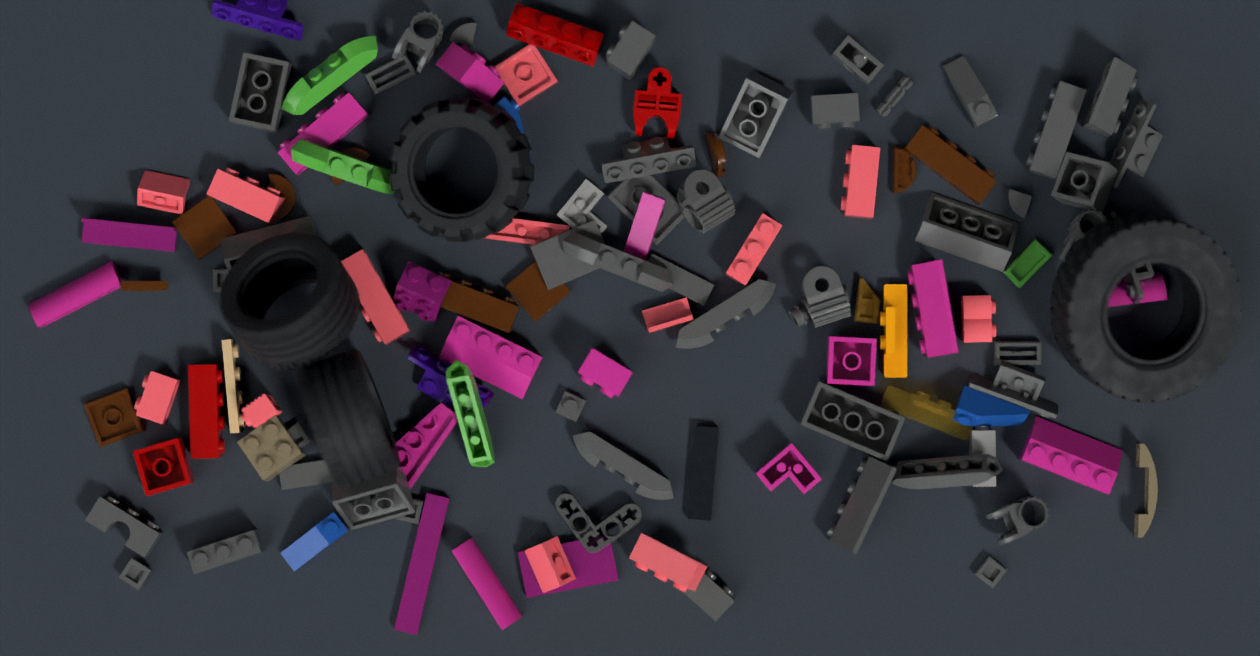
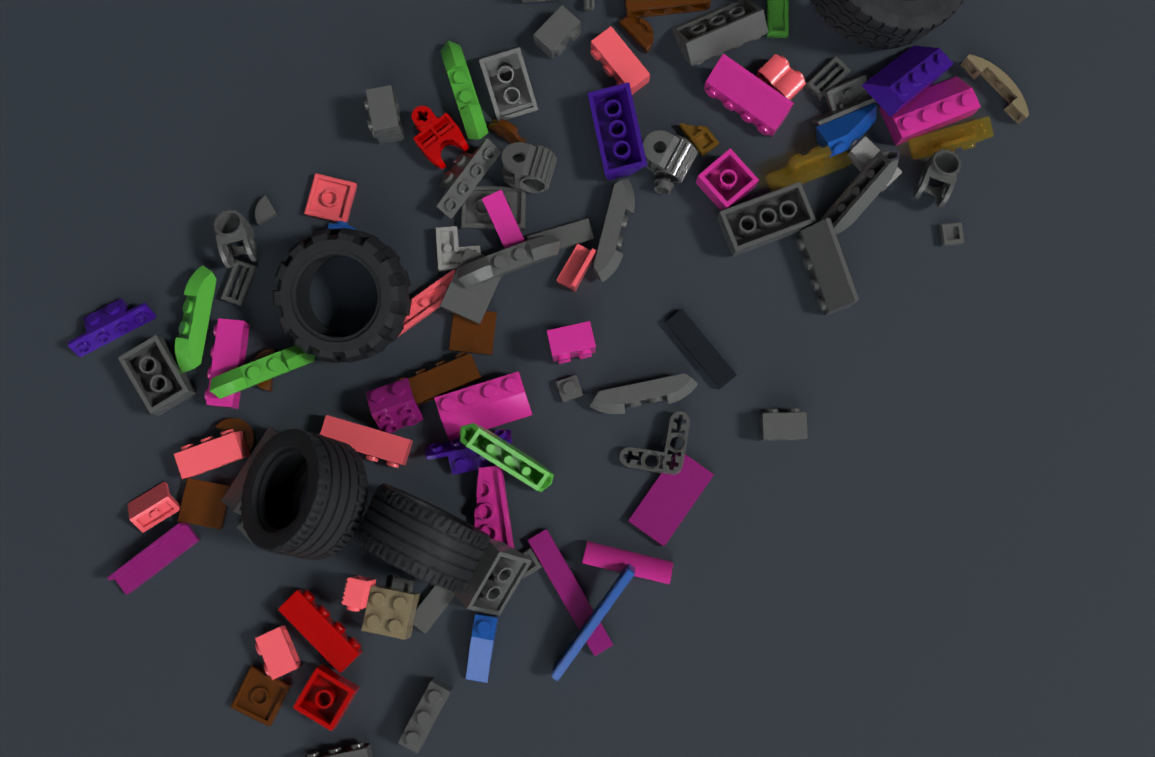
camera: 45 degrees left, 5 degrees down
(75, 294) = (156, 636): dark pink brick -> none
(144, 285) = (196, 584): reddish brown tile -> none
(232, 376) = (317, 588): tan plate -> none
(417, 602) = (593, 621): none -> blue tile
(470, 71) = (288, 227): dark pink brick -> none
(550, 564) = (658, 508): coral panel -> none
(554, 34) = (324, 152): red brick -> none
(667, 563) = (737, 429): coral brick -> none
(714, 86) = (464, 91): none -> bright green brick
(753, 249) = (592, 170): coral brick -> none
(788, 464) = (756, 285): dark pink brick -> none
(802, 238) = (617, 131): none -> dark purple slope
(895, 330) = (735, 137): light orange bracket -> none
(1065, 497) = (950, 138): none -> clear yellow bracket
(1074, 414) = (907, 77): none -> dark purple slope

